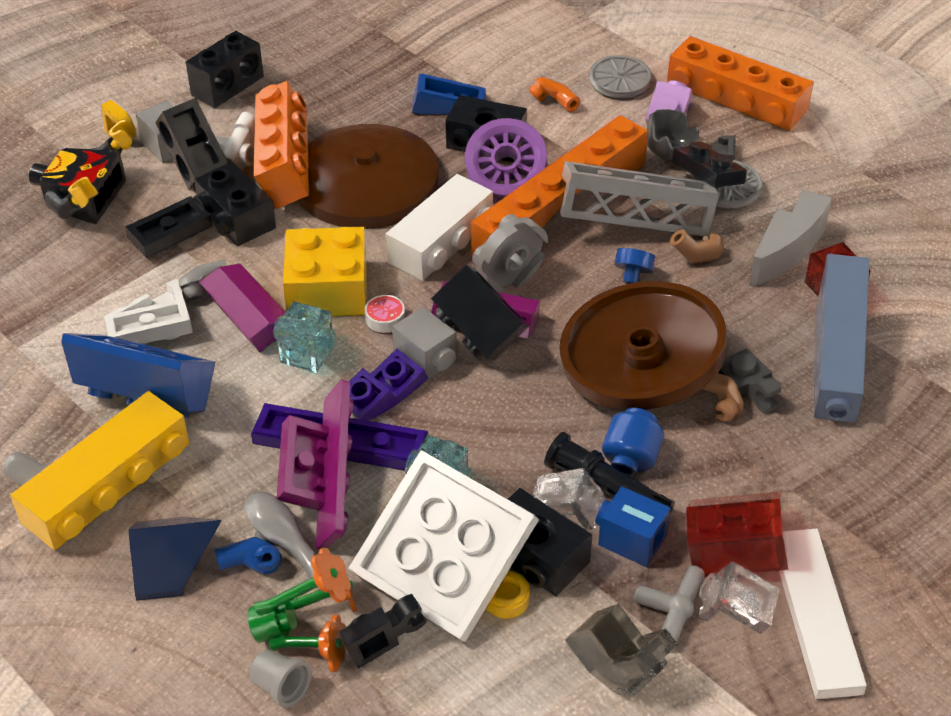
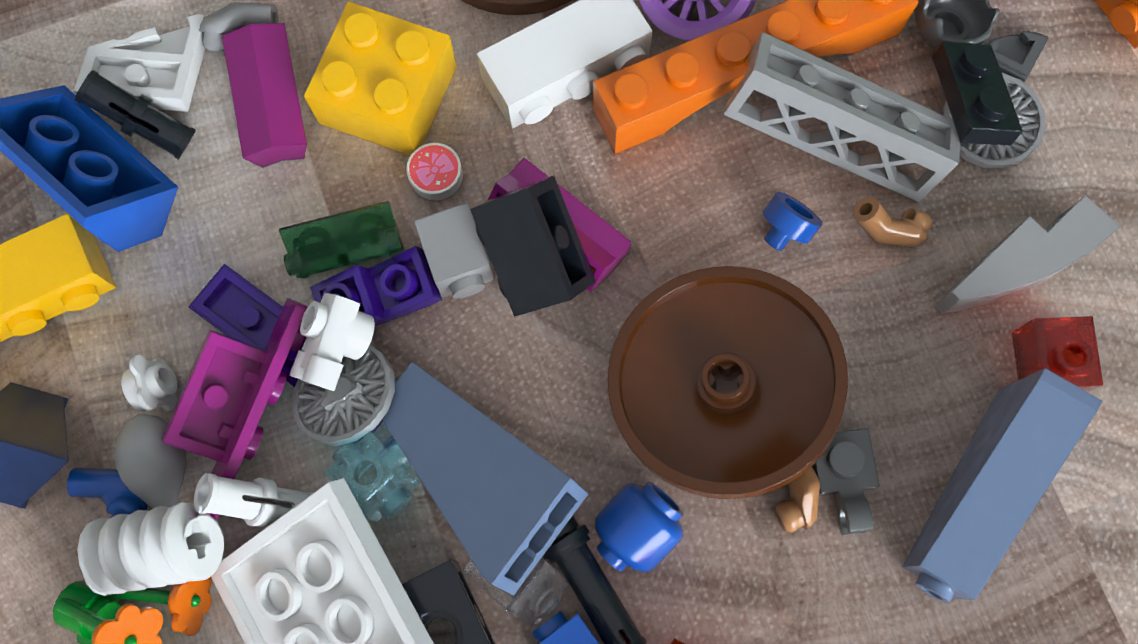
camera: 25 degrees right, 30 degrees up
(161, 335) = (134, 114): none -> black pin
(247, 479) = (149, 384): none -> white plate
(295, 555) = (149, 549): none -> white piece
(304, 336) = (309, 179): clear light blue brick -> none
(343, 362) = (340, 240): none -> clear green hinge
(365, 502) = (226, 498): none -> white pin
(375, 395) = (332, 331): none -> white plate
(394, 430) = (353, 407): none -> light grey wheel
(513, 237) = (629, 150): light grey plate -> none
(516, 432) = (484, 480): none -> sand blue slope

